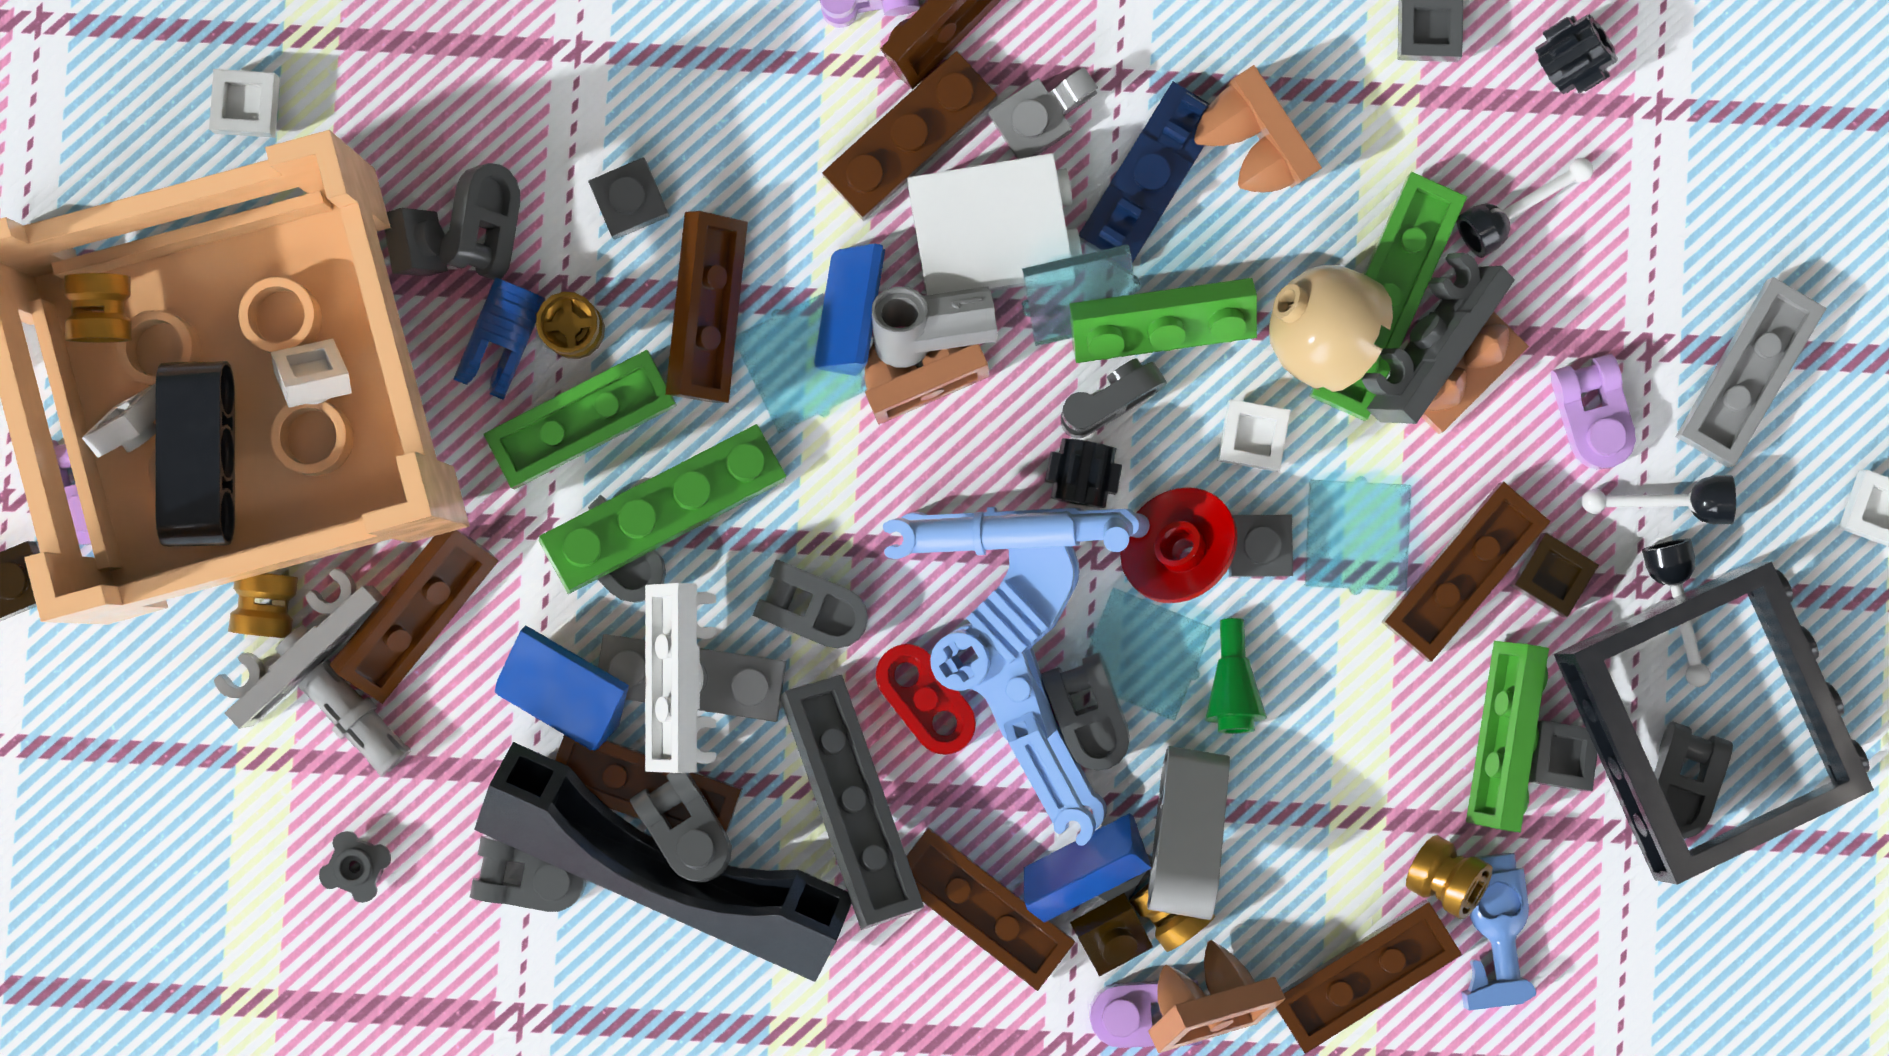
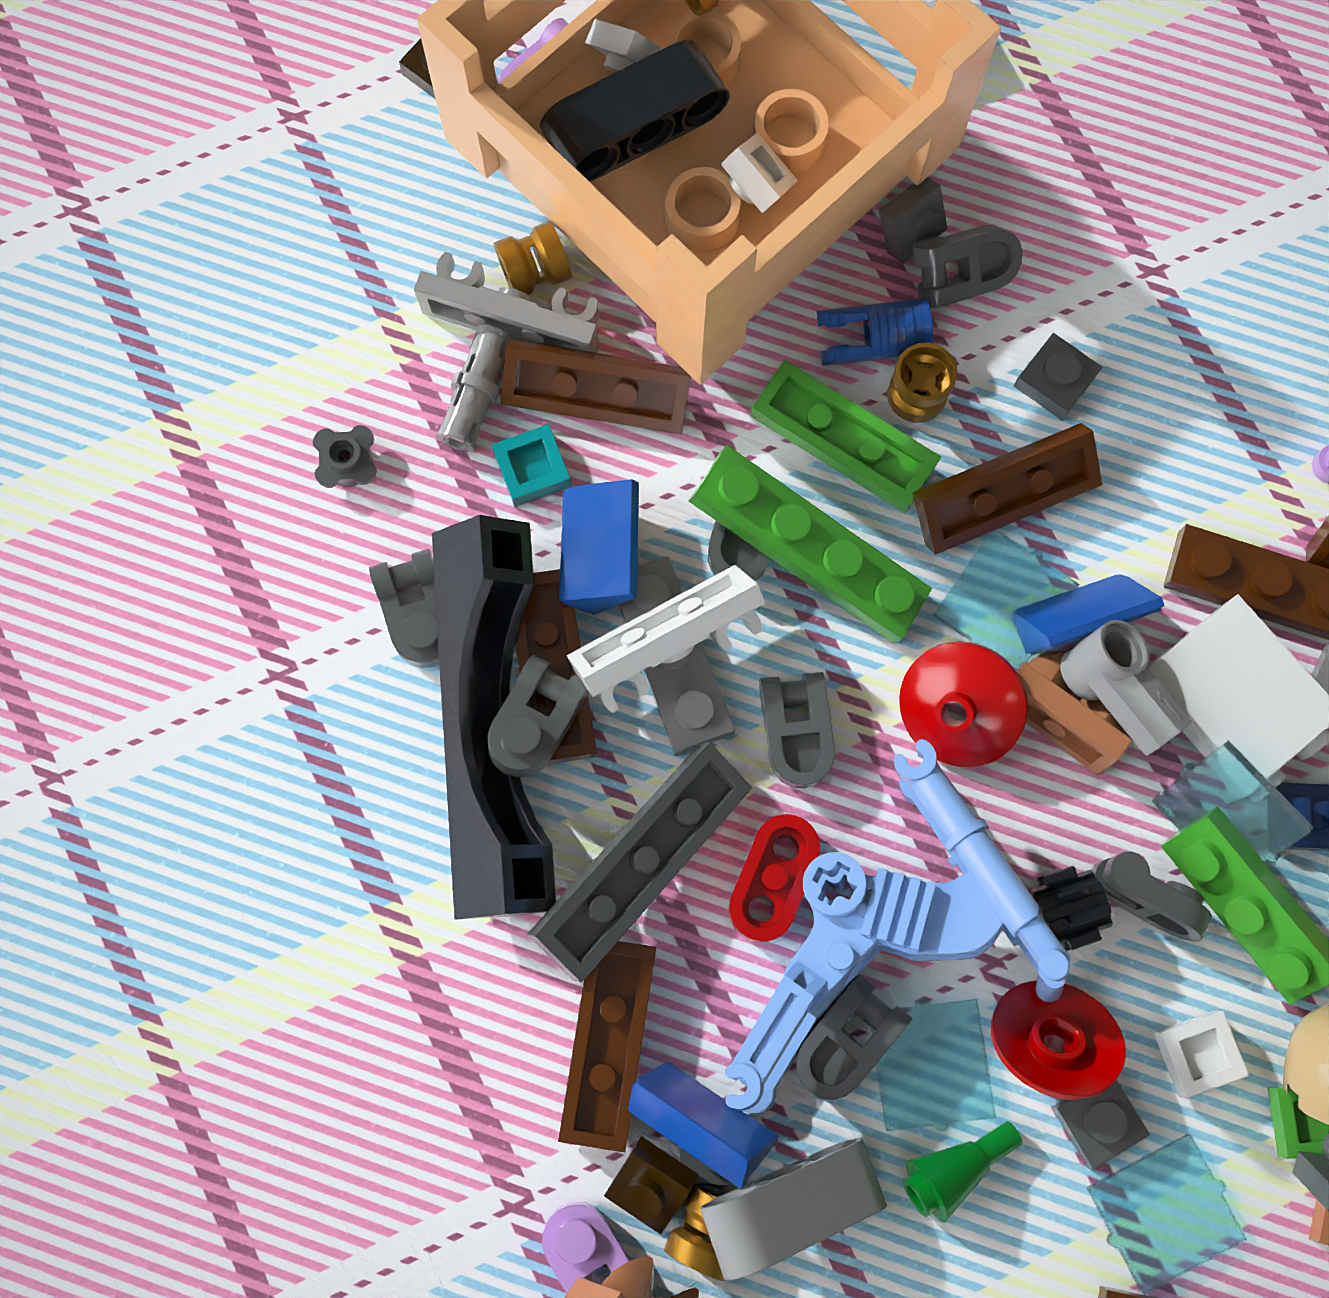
camera: 60 degrees right, 10 degrees down
(453, 706) = (531, 465): none -> teal tile
(865, 440) = (982, 685): none -> red dish

